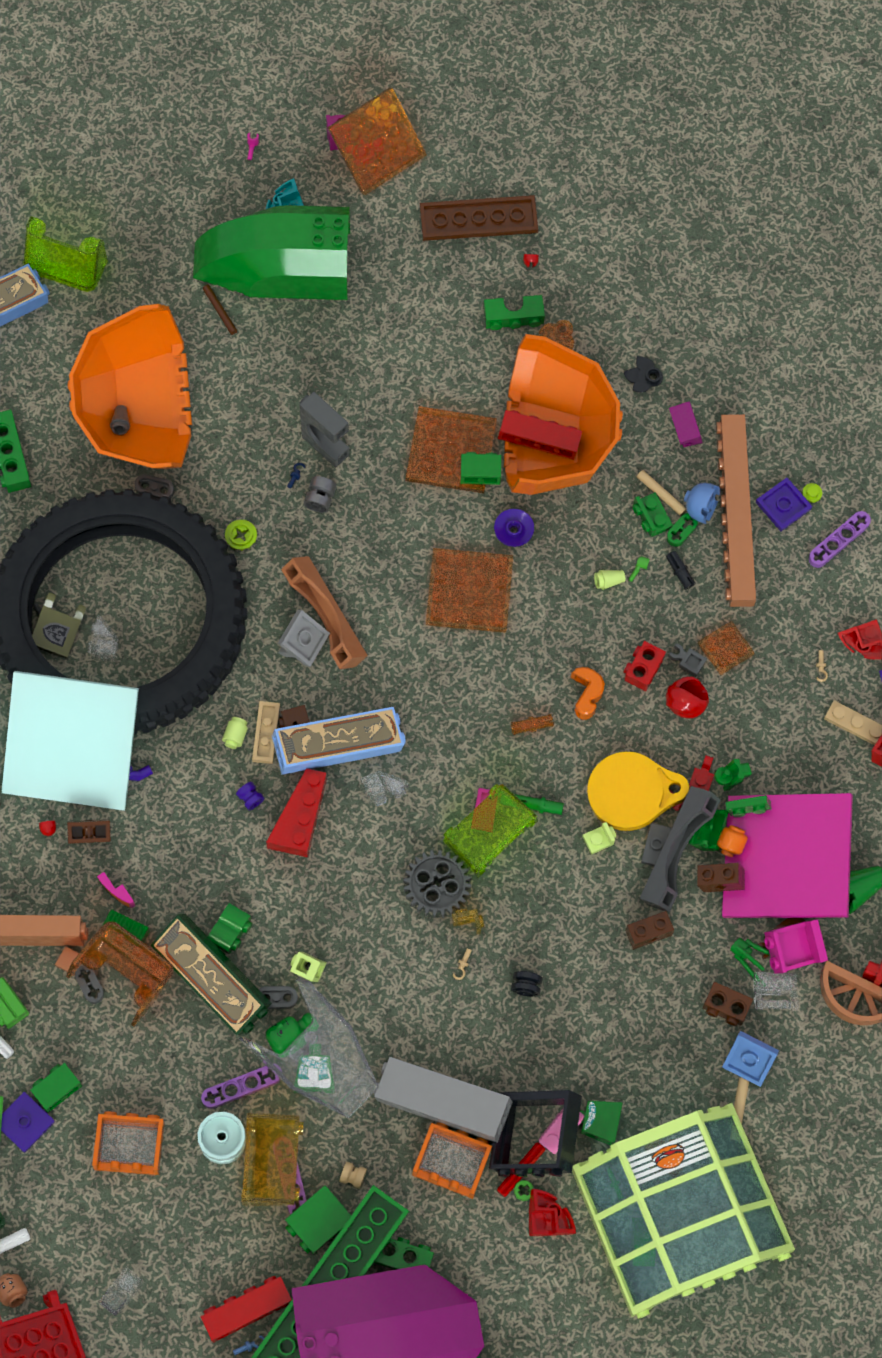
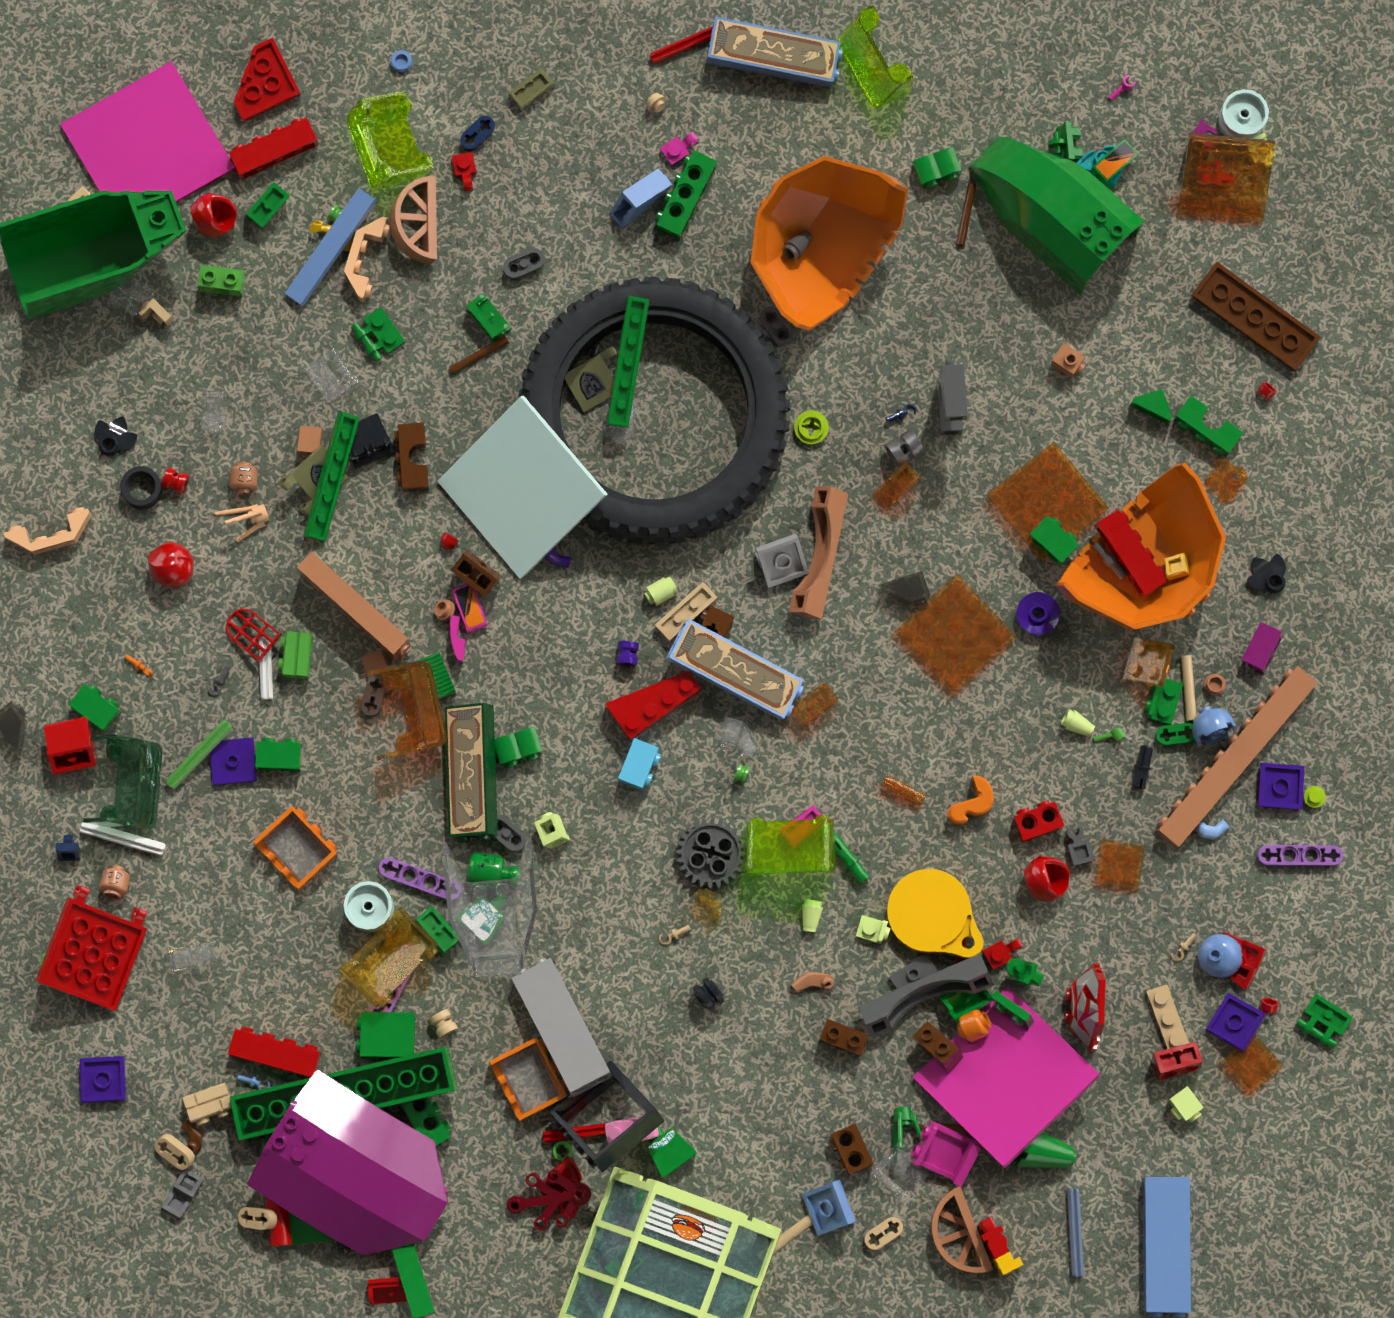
camera: 40 degrees right, 10 degrees up
(70, 590) = (628, 361): none -> green tile
(88, 878) = (444, 610): none -> nougat plate
(105, 860) = (470, 608): none -> slope
(173, 292) = (936, 168): none -> green brick
(243, 205) = (1063, 142): none -> green hips
(290, 1106) = (438, 929): none -> green hinge
(291, 190) = (1114, 161): none -> slope
(329, 865) = (639, 764): none -> medium azure brick
(337, 522) = (897, 486): none -> clear orange slope
(349, 93) = (1254, 113): none -> light aqua wheel
(379, 346) = (1068, 361): none -> nougat brick
(408, 810) = (741, 774): none -> bright green bush
(409, 586) = (908, 589): none -> clear smoke slope
(415, 718) = (814, 704): none -> clear orange hinge
(465, 328) = (1154, 405): none -> green slope
(530, 451) = (1109, 560): none -> dark grey bar
(547, 865) = (811, 914): none -> yellowish green cone
(548, 1229) = (552, 1198): none -> dark red plant
(579, 418) = (1176, 566): none -> yellow tile
(589, 909) = (813, 979): none -> nougat arm
(619, 496) = (1148, 662): none -> clear orange plate
(676, 475) = (1214, 684): none -> nougat plate
(766, 574) = (1210, 832): none -> light blue arm
(799, 757) = (1087, 1007): none -> wedge
(809, 1044) = (886, 1237): none -> tan beam
(851, 650) = (1220, 955): none -> medium blue cylinder

